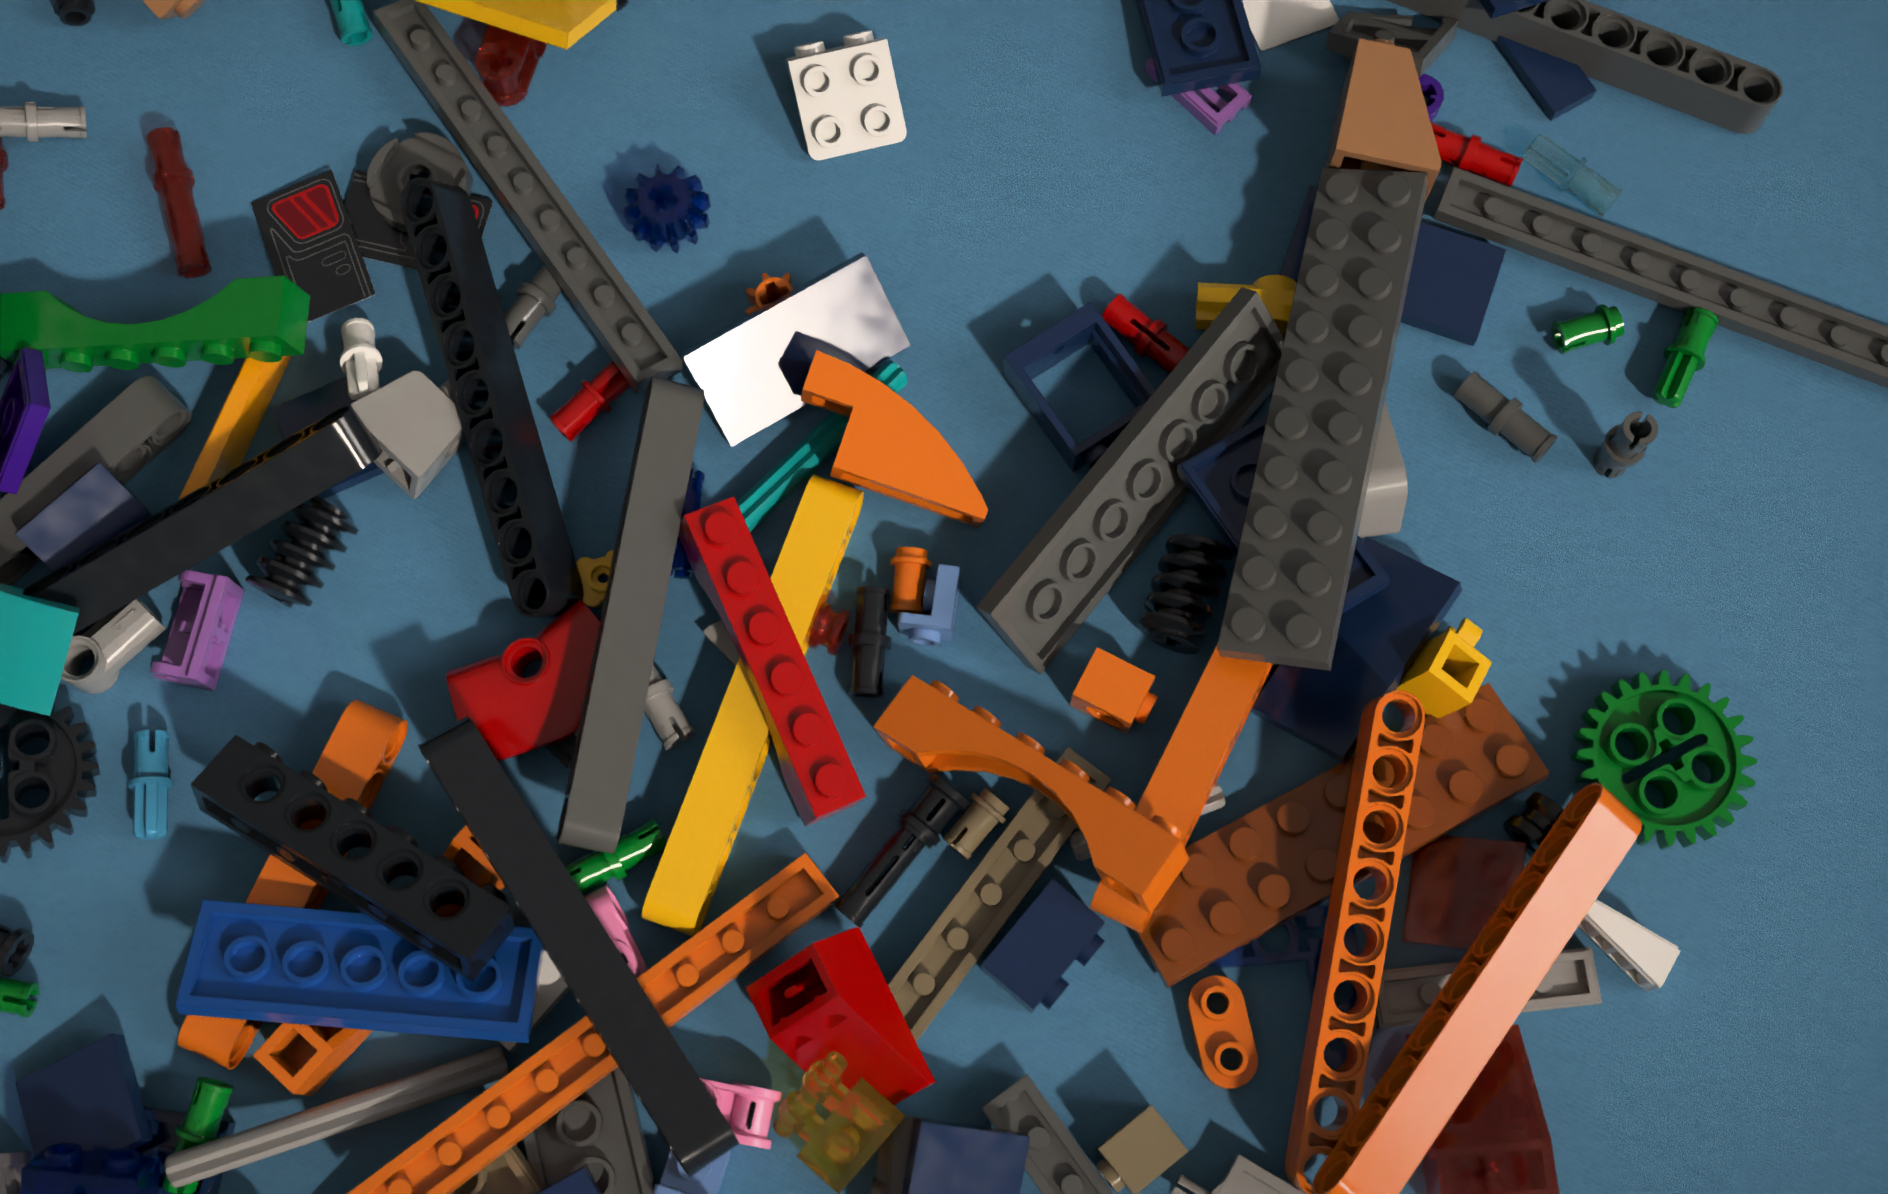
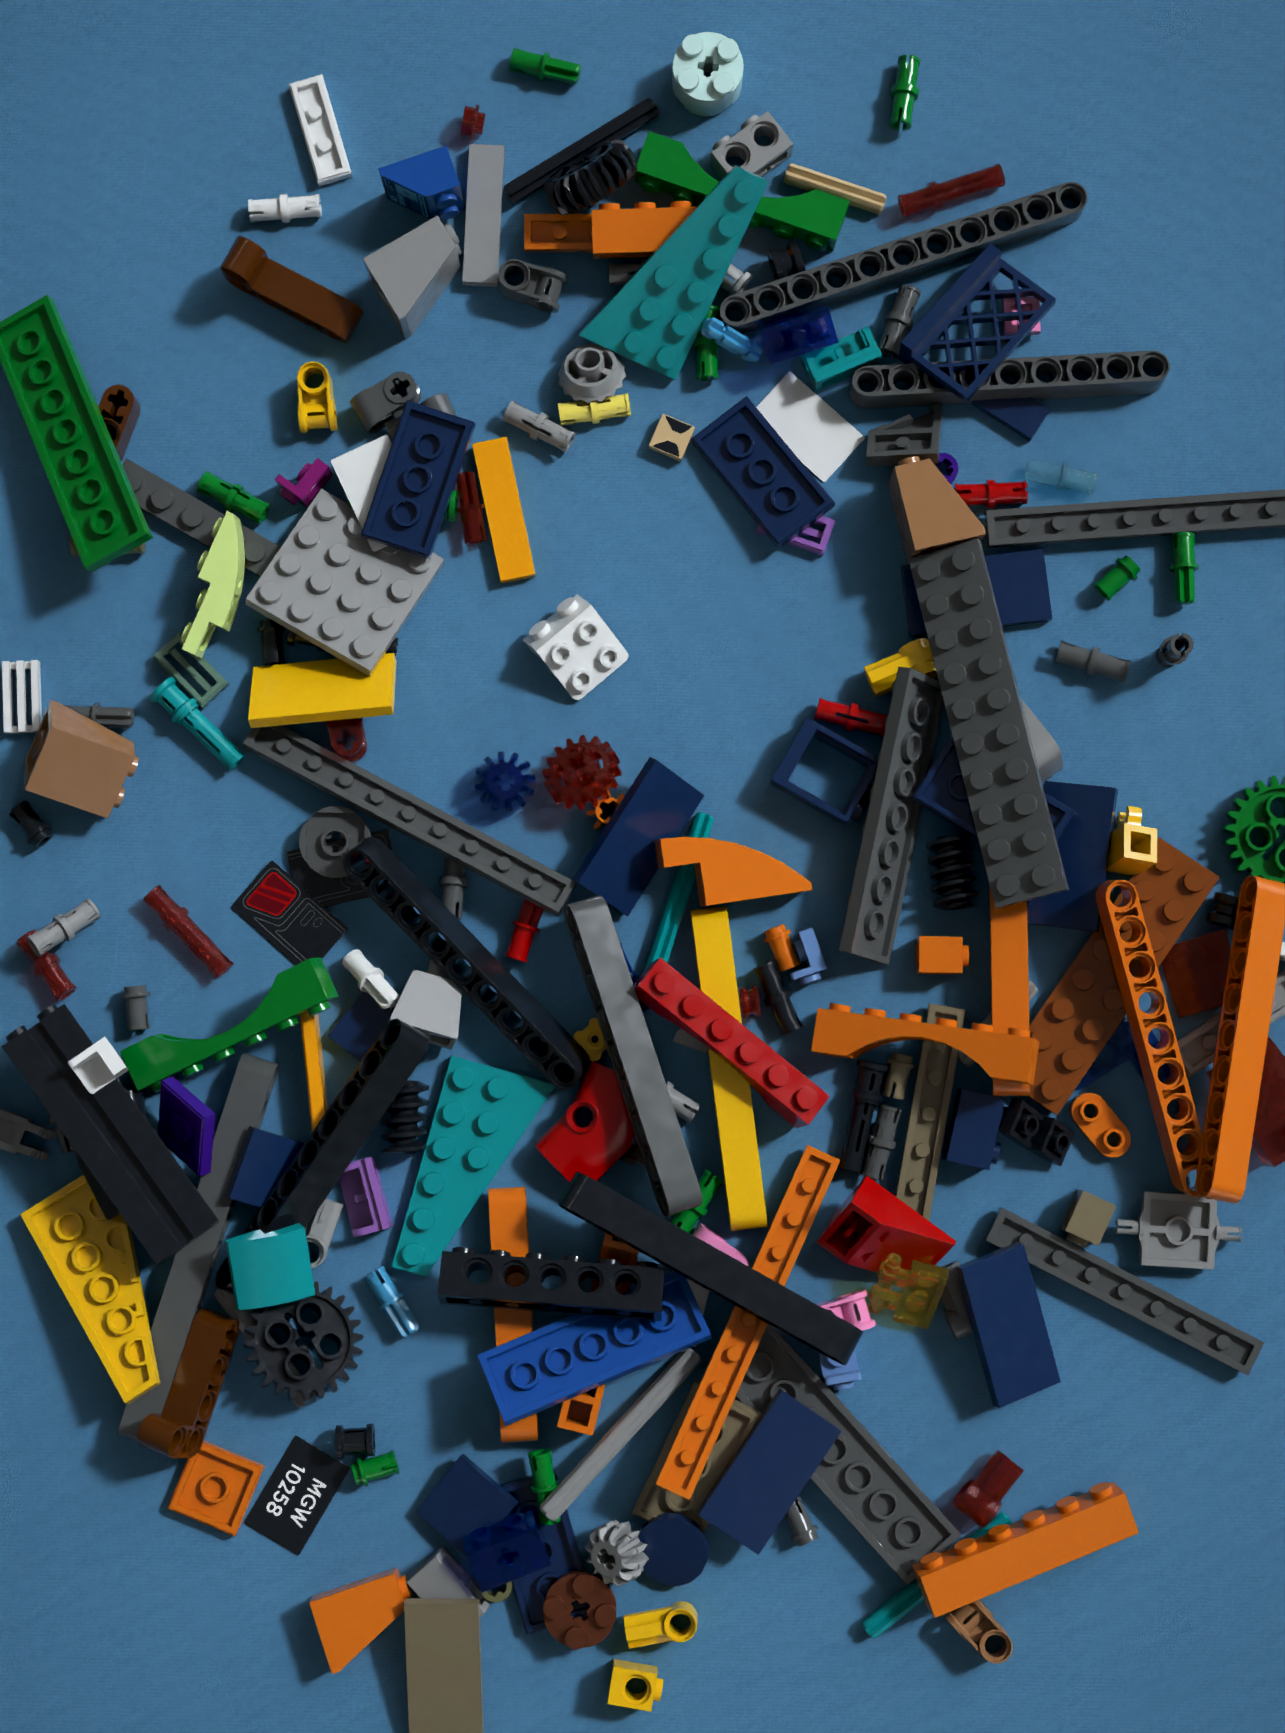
camera: 30 degrees left, 10 degrees up
(62, 261) = (136, 1007): none -> dark grey pin
(367, 632) = (470, 1137): none -> teal wing
(767, 238) = (582, 772): none -> clear red gear
(908, 900) = (881, 1141): none -> dark grey pin
(1126, 995) = (1036, 1132): none -> black slope

